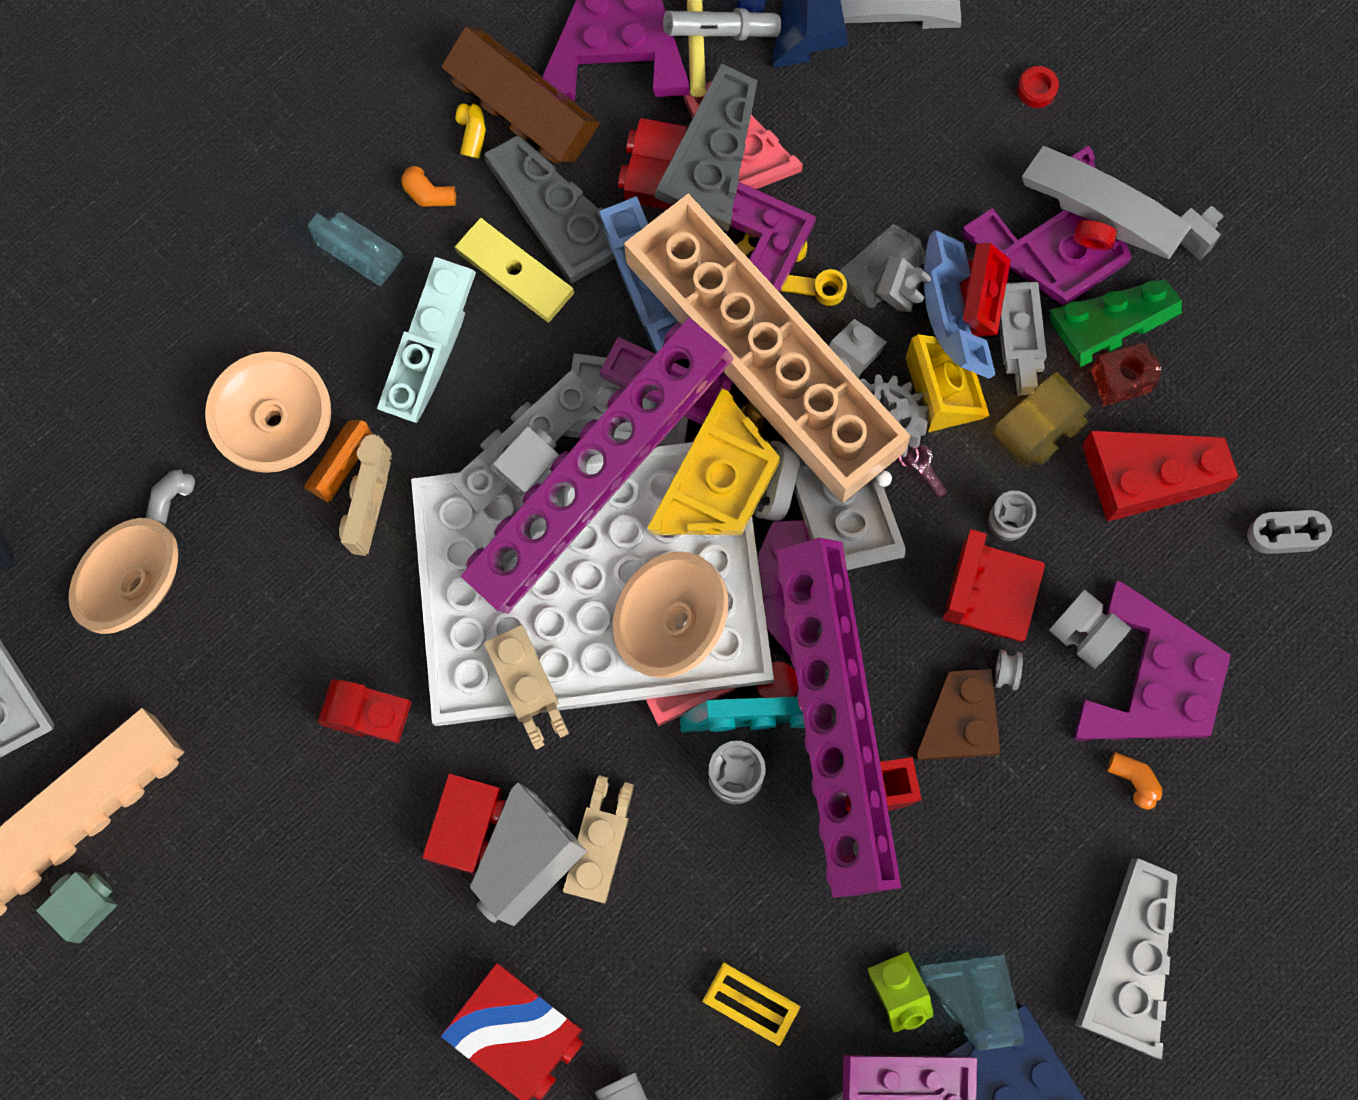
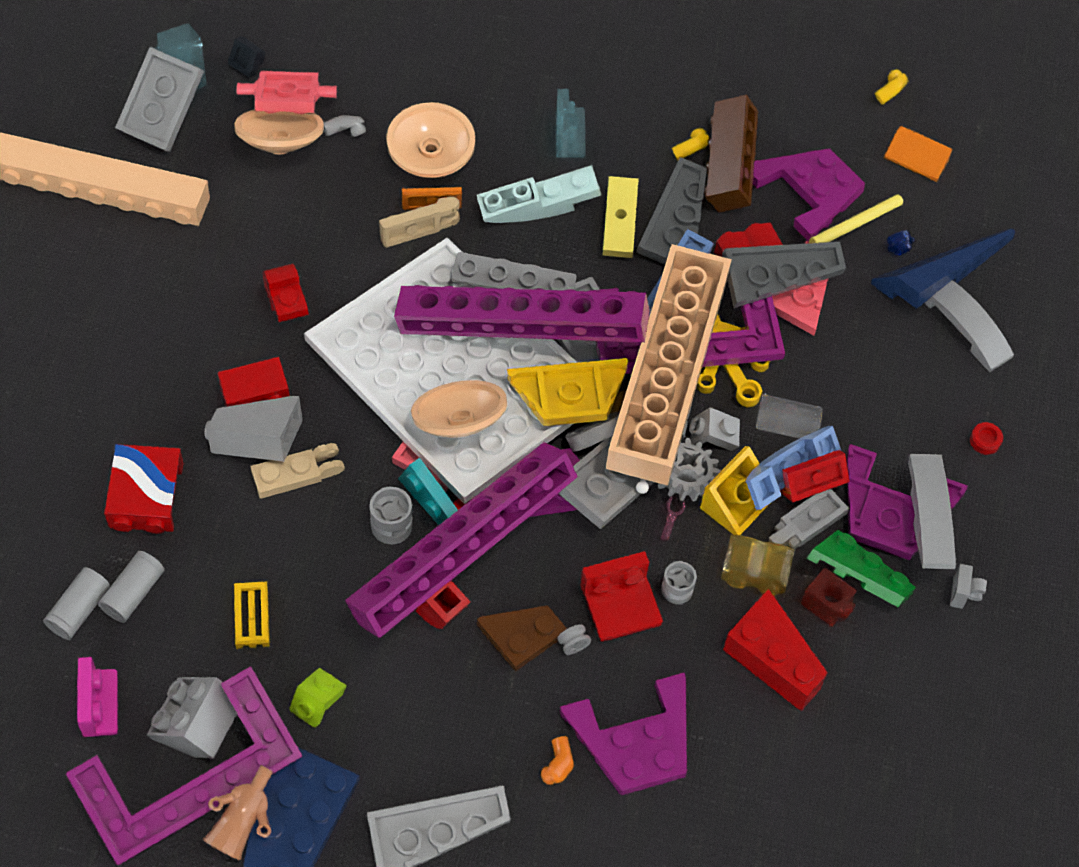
camera: 50 degrees right, 15 degrees down
(74, 534) = (286, 91): none -> coral plate
(77, 905) = (70, 222): sand green brick -> none
(423, 191) = (632, 142): orange arm -> none
(525, 459) = (498, 273): light grey brick -> none
(525, 681) = (363, 364): tan hinge -> none
(737, 24) = (869, 231): light grey pin -> none
(901, 284) = (782, 429): light grey tile -> none
(978, 998) = (343, 742): clear light blue wing -> none
(1090, 629) = (636, 675): light grey wheel -> none
(1095, 235) = (904, 518): red tile -> none
(1289, 522) = (807, 760): light grey beam -> none

